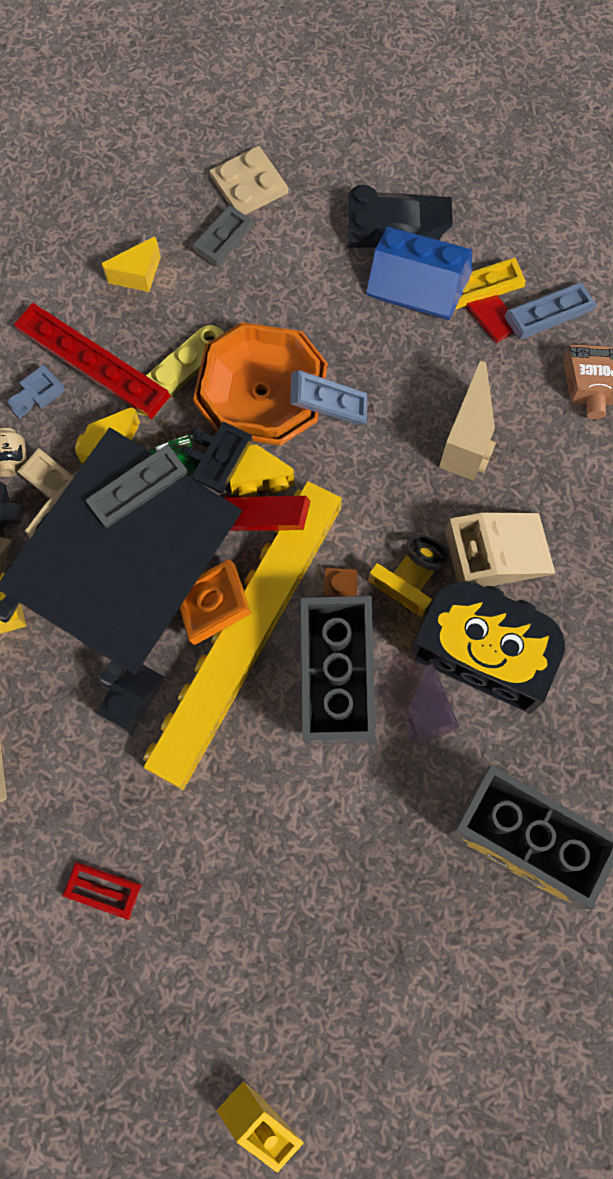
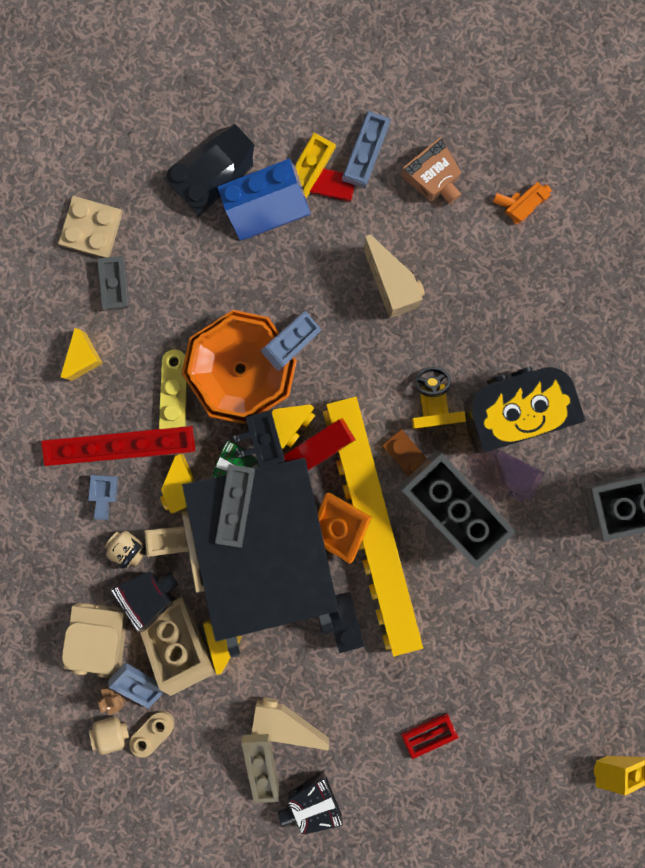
camera: 40 degrees left, 15 degrees up
(498, 548) = (473, 342): tan slope -> none

